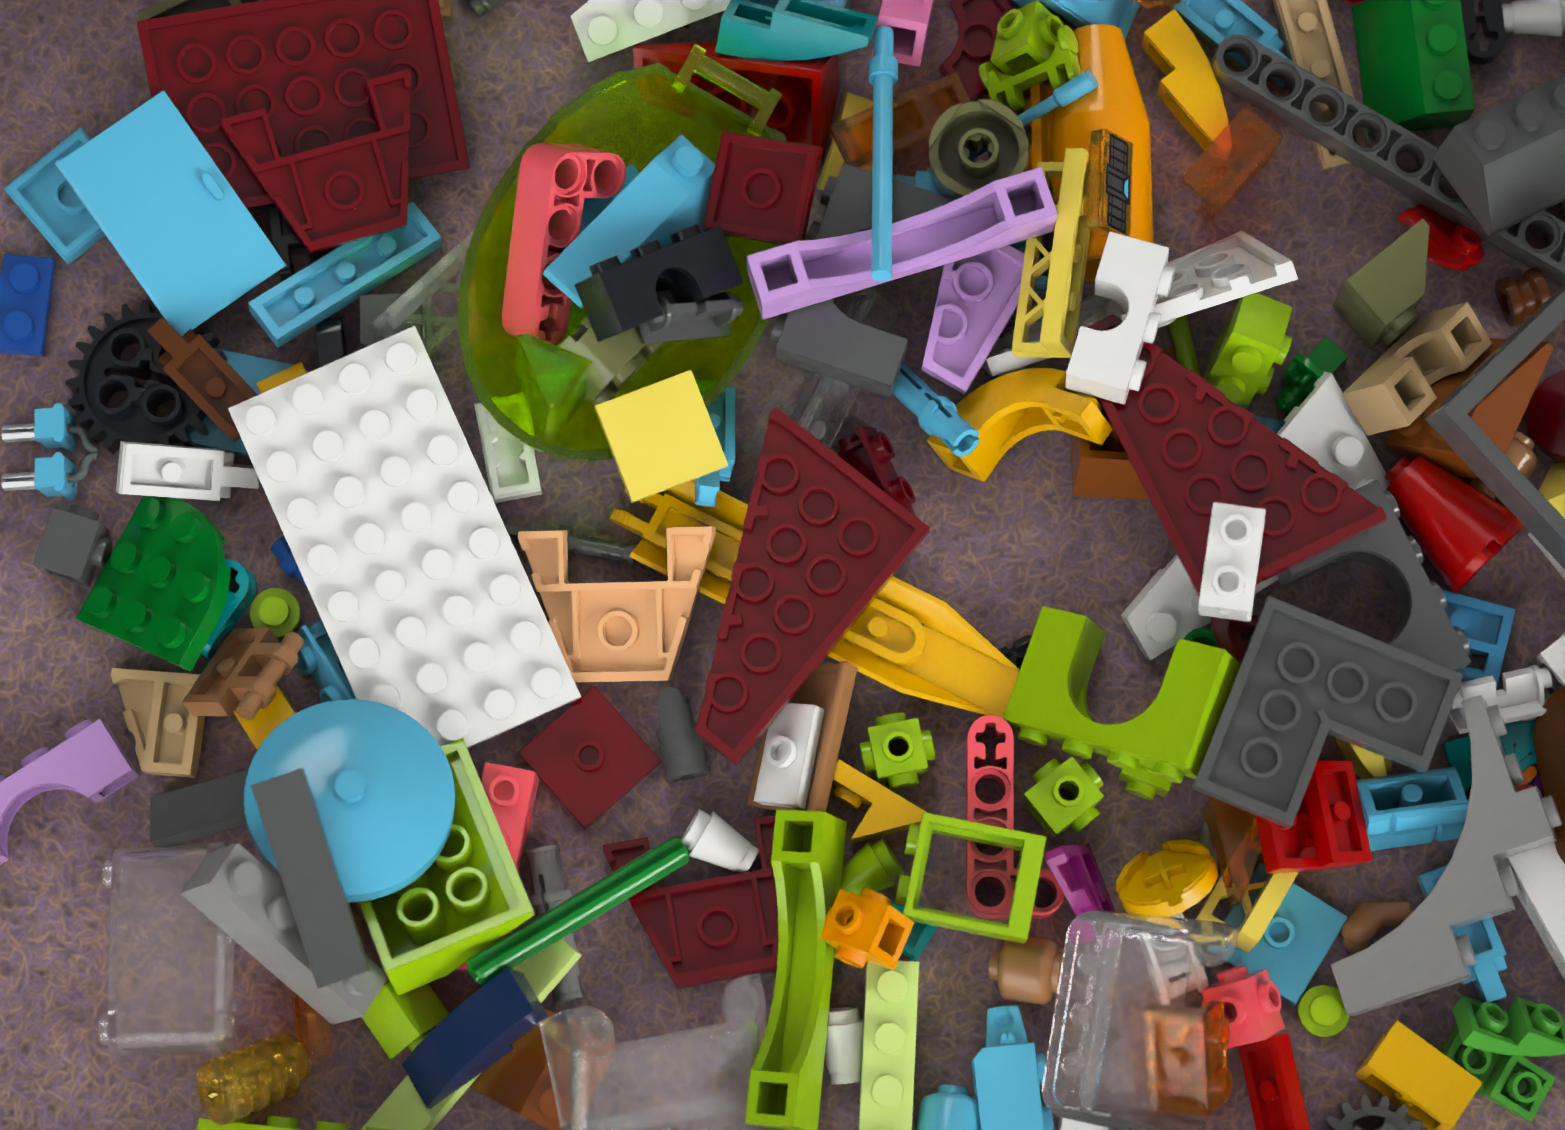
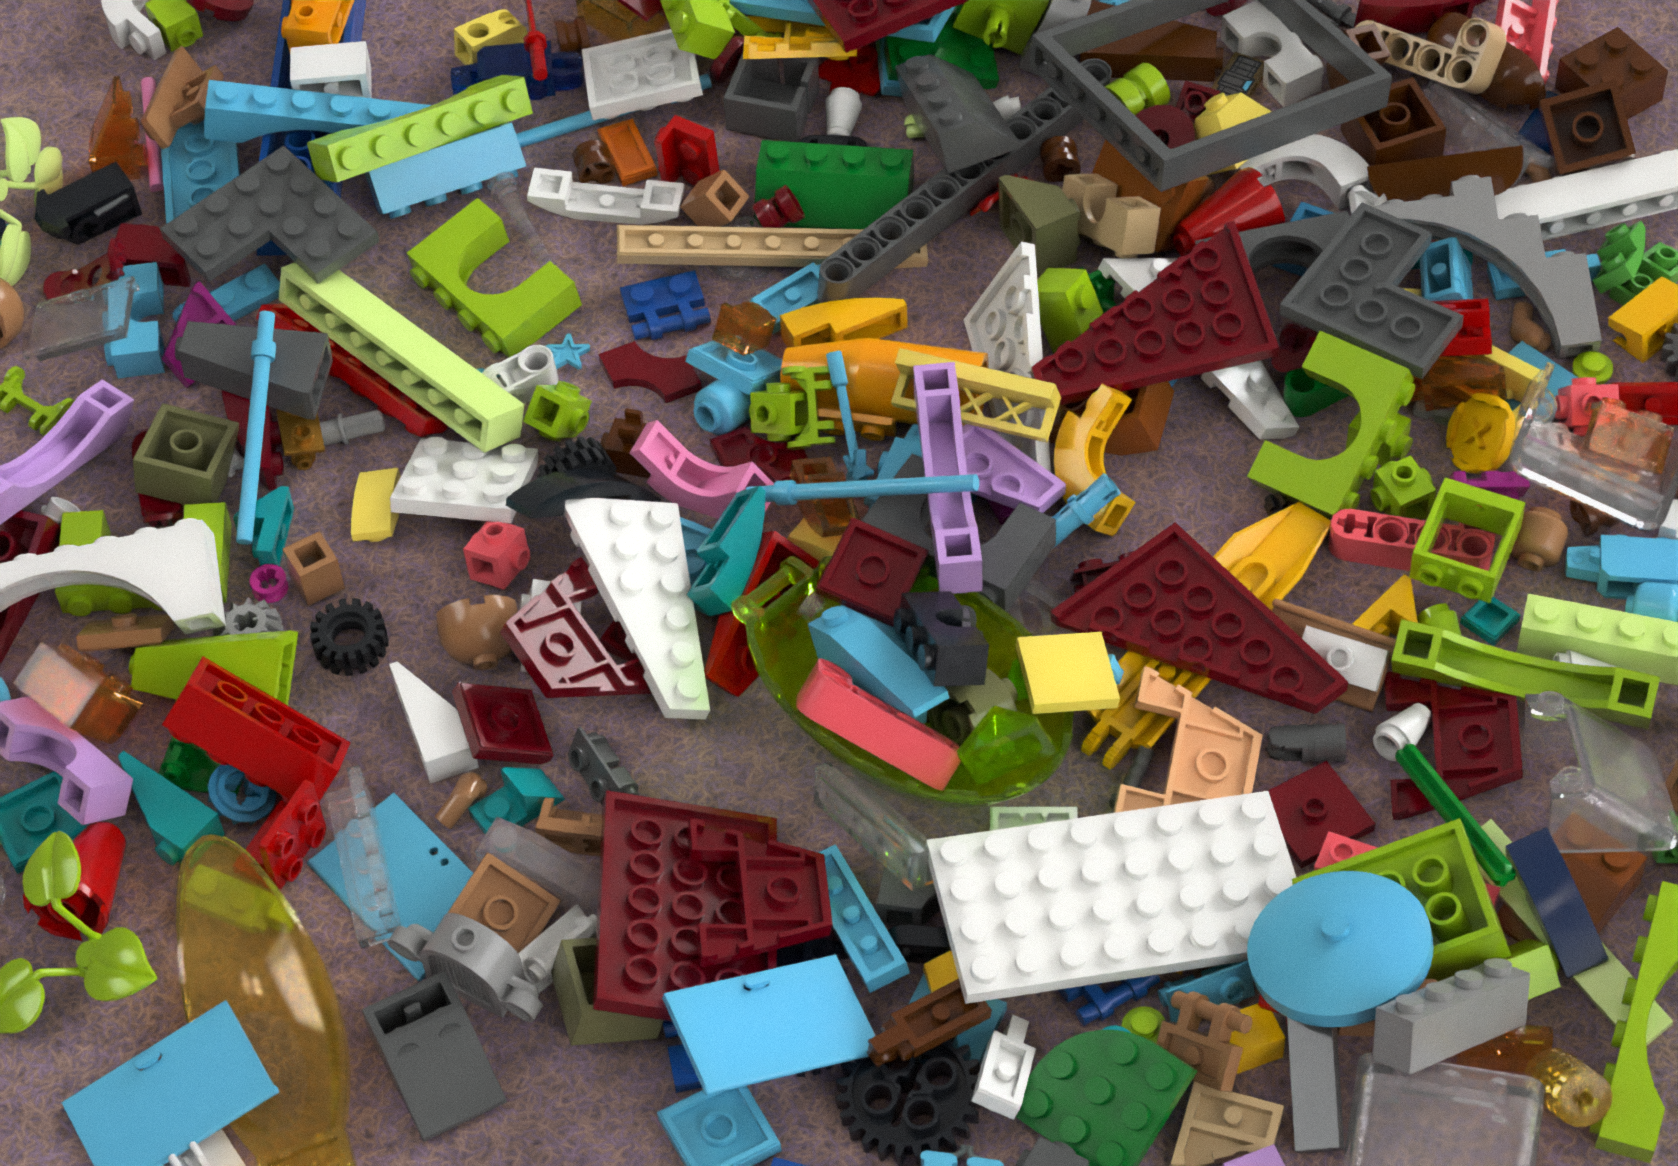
camera: 75 degrees left, 25 degrees down
(310, 878) = (1414, 960): dark grey tile -> none
(866, 929) = (1496, 599): light orange brick -> none
(892, 769) = (1347, 590): lime brick -> none
(971, 128) = (874, 434): olive brick -> none
(1108, 361) = (1015, 337): white arch -> none
(1109, 183) = (930, 347): tile -> none
(1231, 162) = (917, 303): clear orange bracket -> none
(1231, 562) = (1253, 310): white hinge -> none

